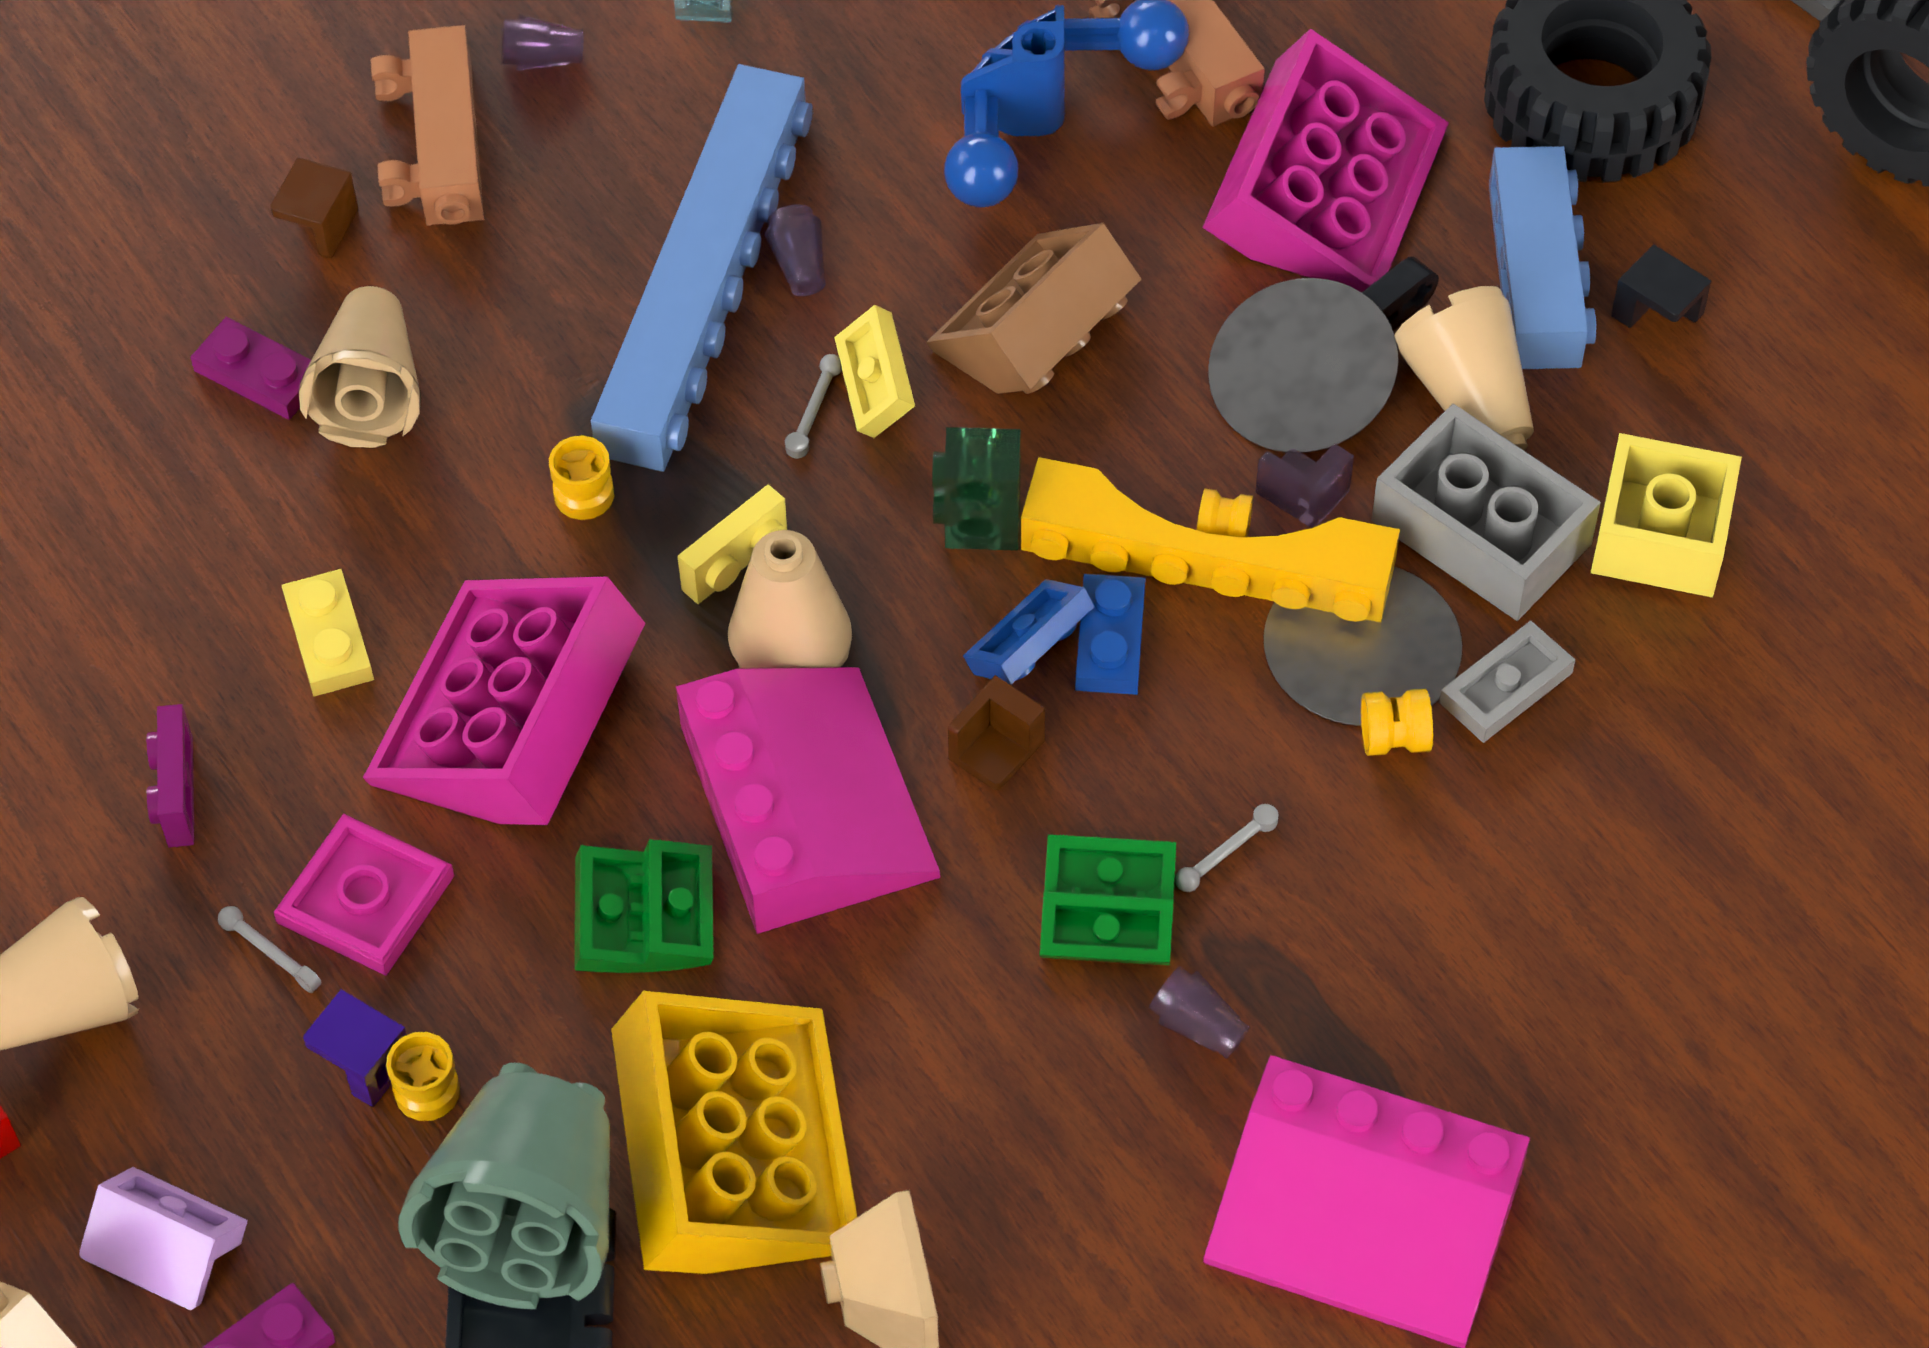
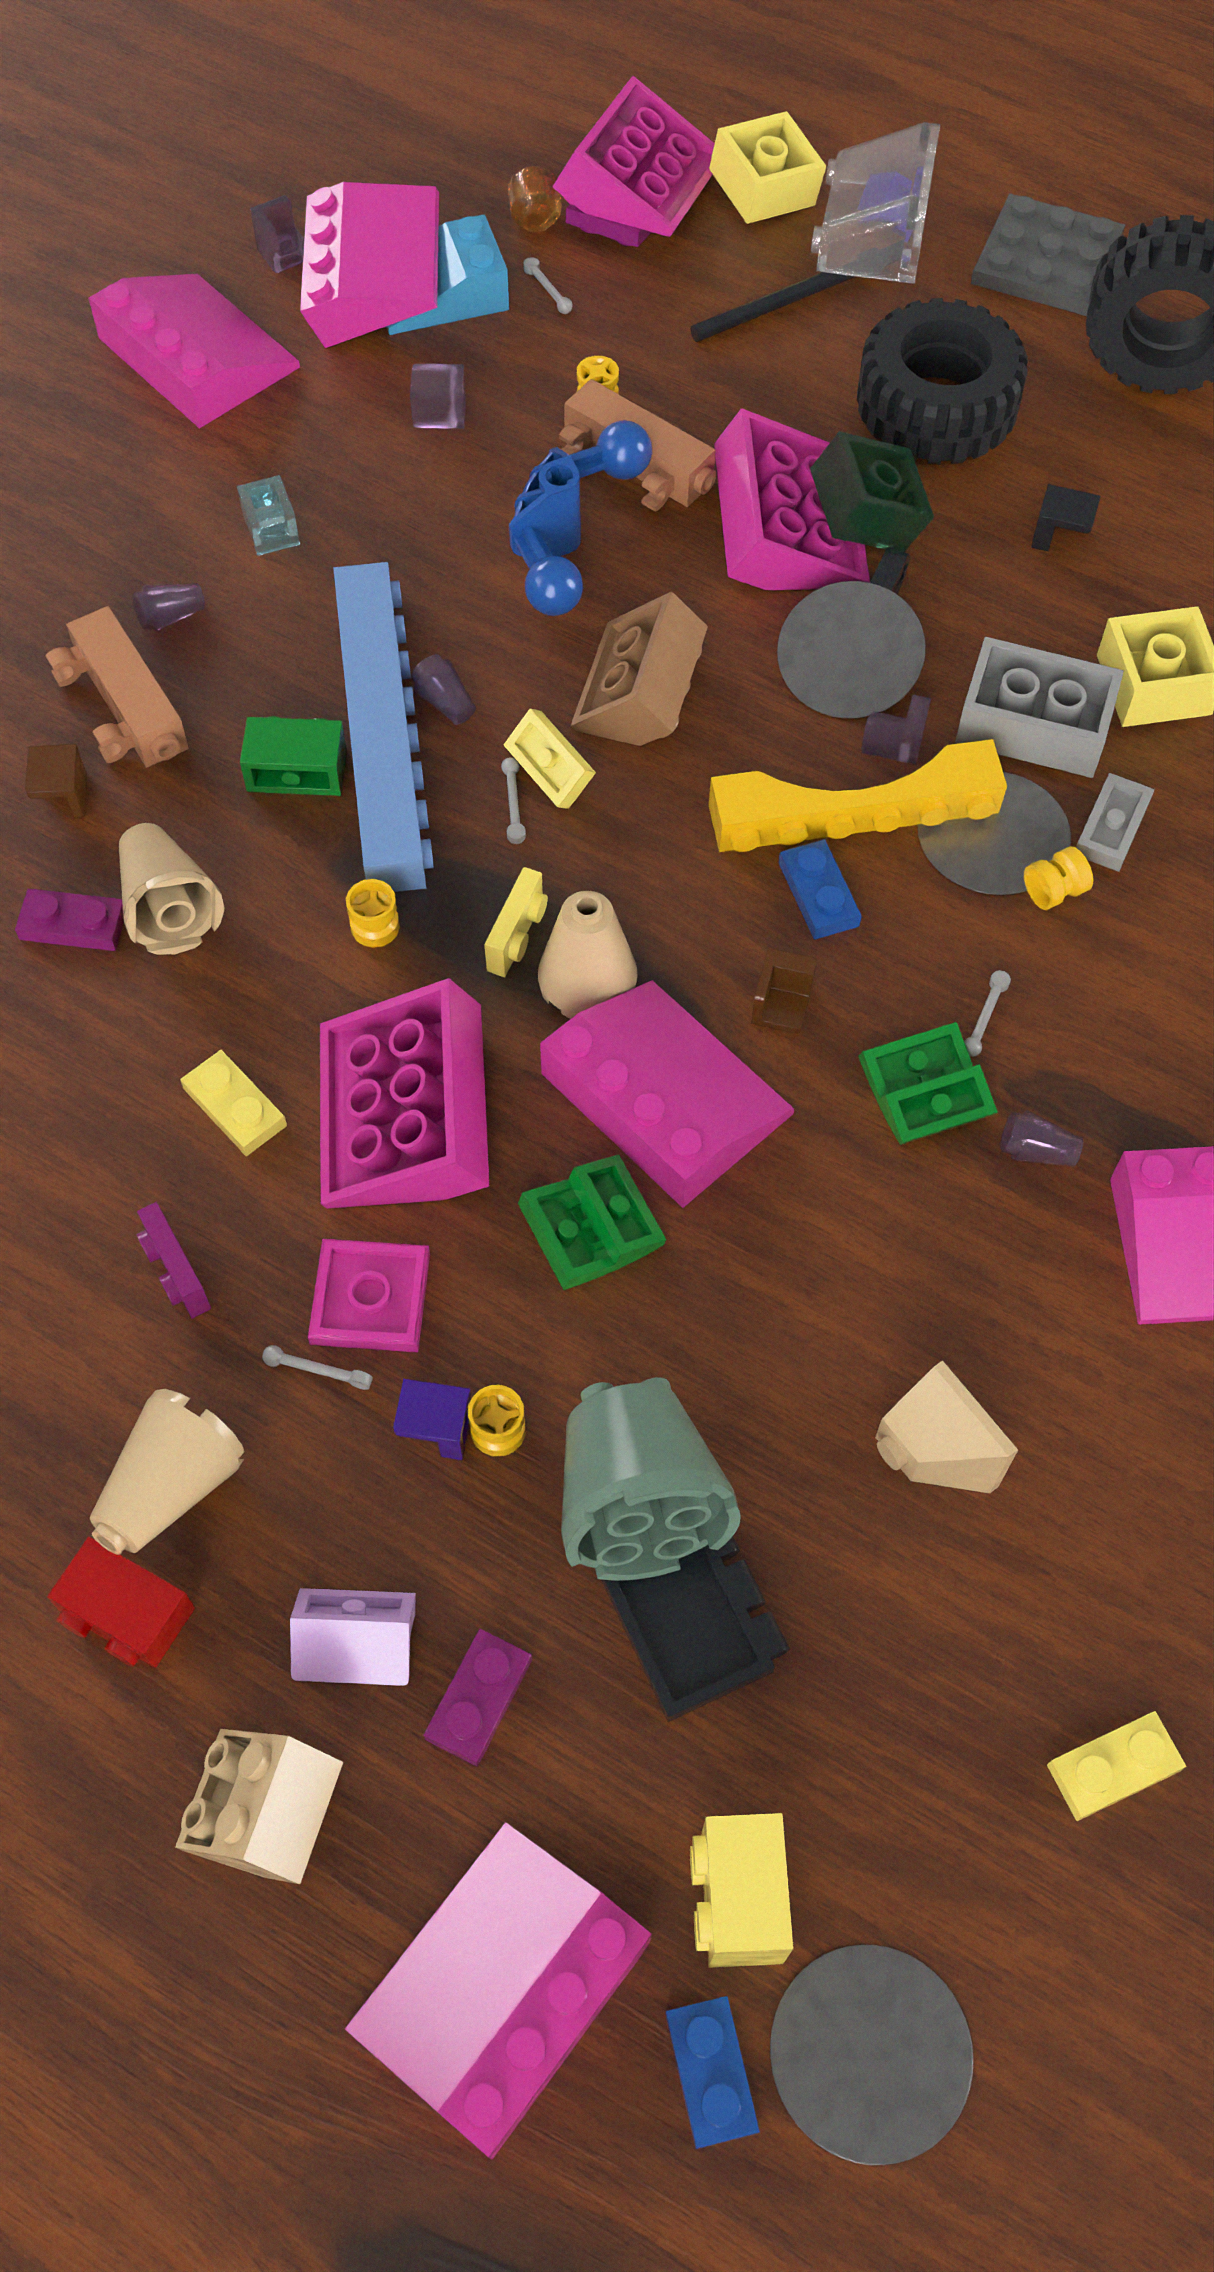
camera: 25 degrees left, 5 degrees up
(586, 267) = (293, 756): none -> green brick
(730, 1132) = (755, 1370): yellow slope -> none
(978, 488) = (682, 814): clear green brick -> none
(1029, 631) = (765, 907): blue plate -> none
(1225, 515) = (858, 773): yellow wheel -> none
(1424, 183) = (871, 492): none -> clear green brick
(1471, 360) = (970, 605): tan cone -> none
(1539, 255) = (974, 525): medium blue brick -> none

